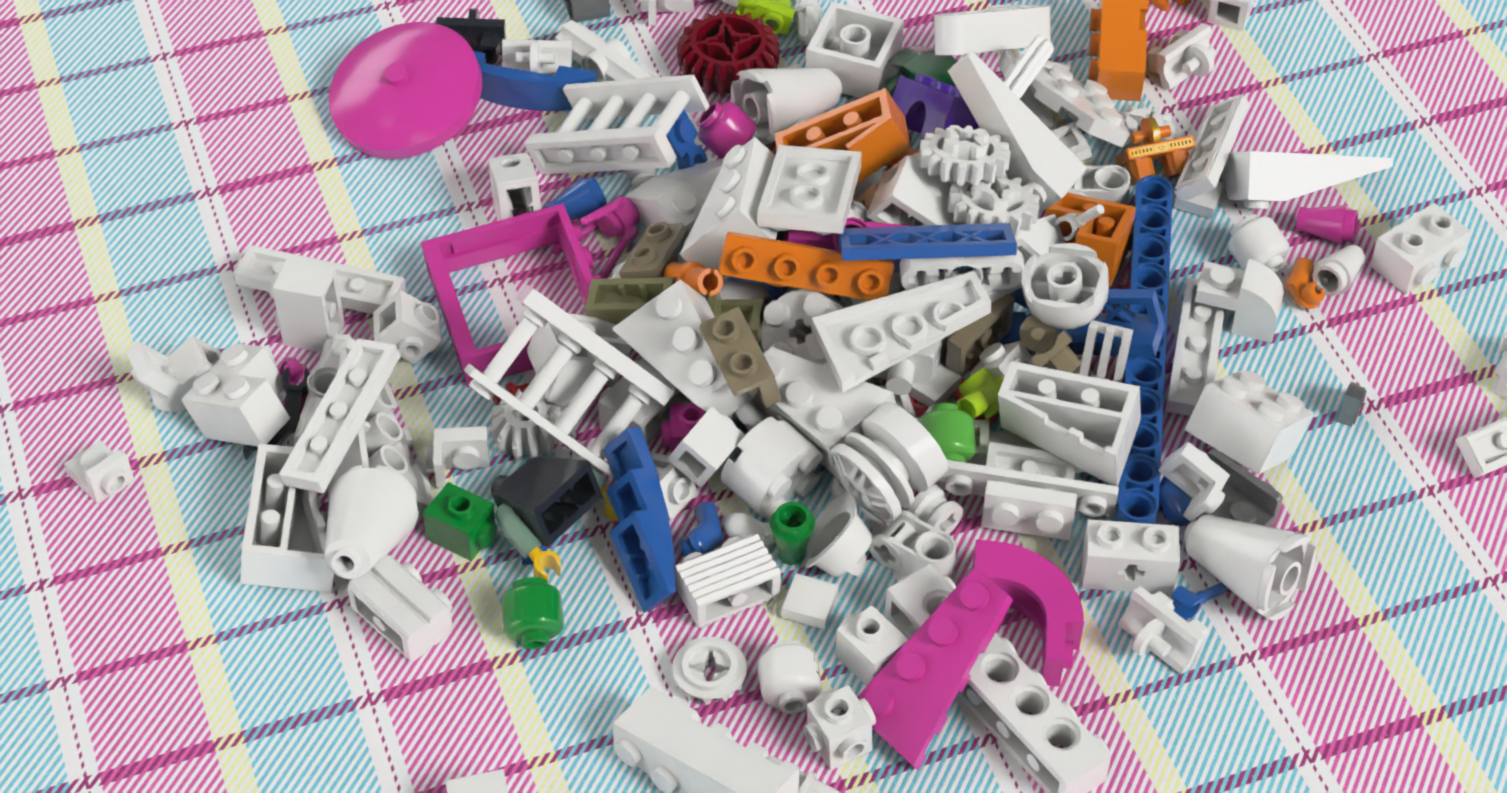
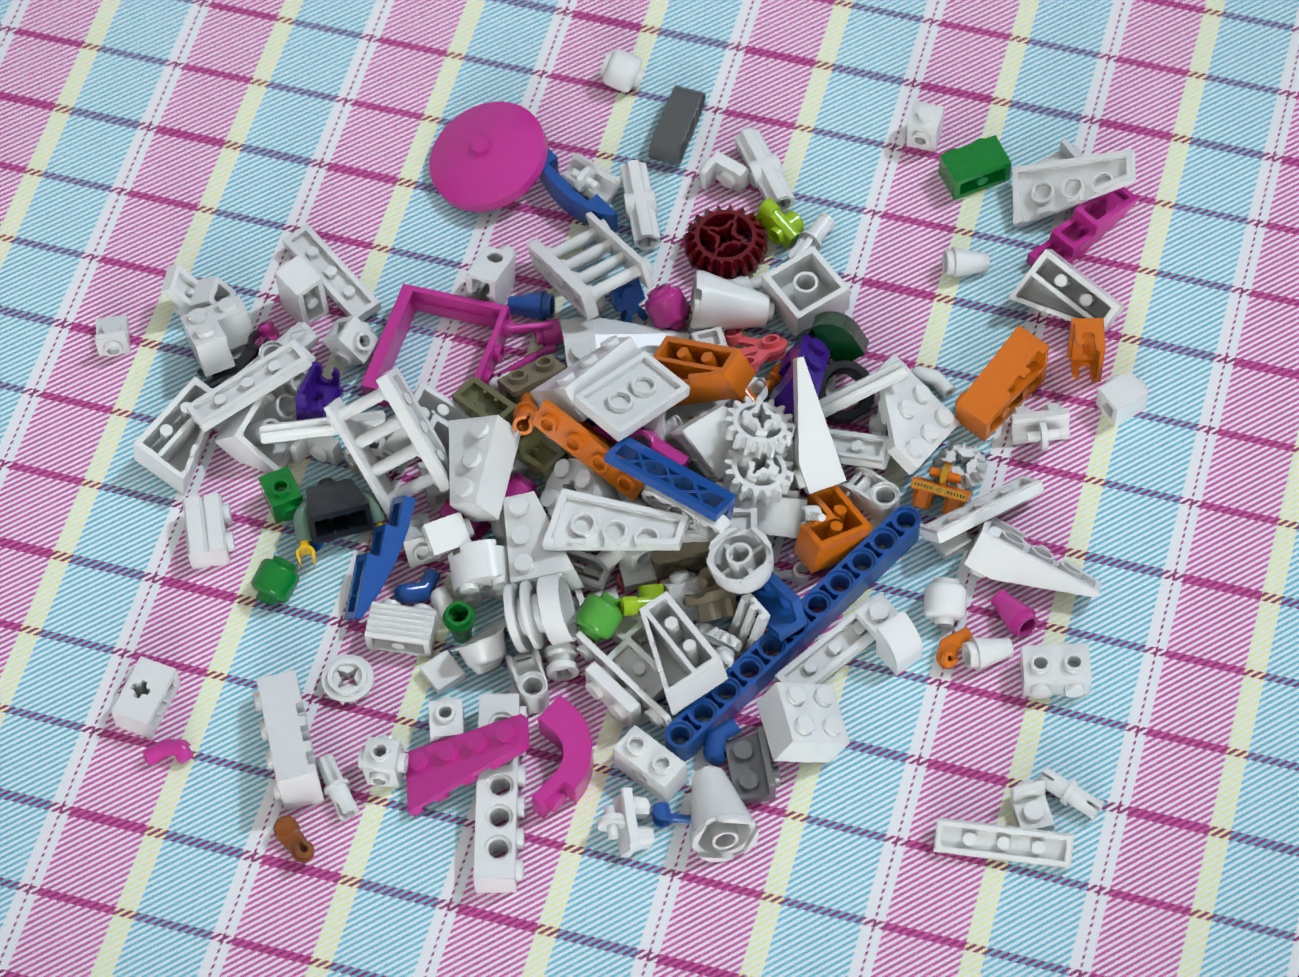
camera: 40 degrees right, 10 degrees up
(367, 518) = (215, 466): white cone -> none
(421, 403) = (317, 393): none -> dark purple hinge
(453, 422) = (315, 427): none -> white axle
(481, 34) = (570, 132): black hips -> none
(740, 356) = (494, 491): dark tan bracket -> none
(789, 676) = (386, 712): white head -> none
(990, 29) = (922, 338): white beam -> none
(1197, 477) = (728, 734): white bracket -> none
(1352, 404) = (899, 749): flat silver tile -> none

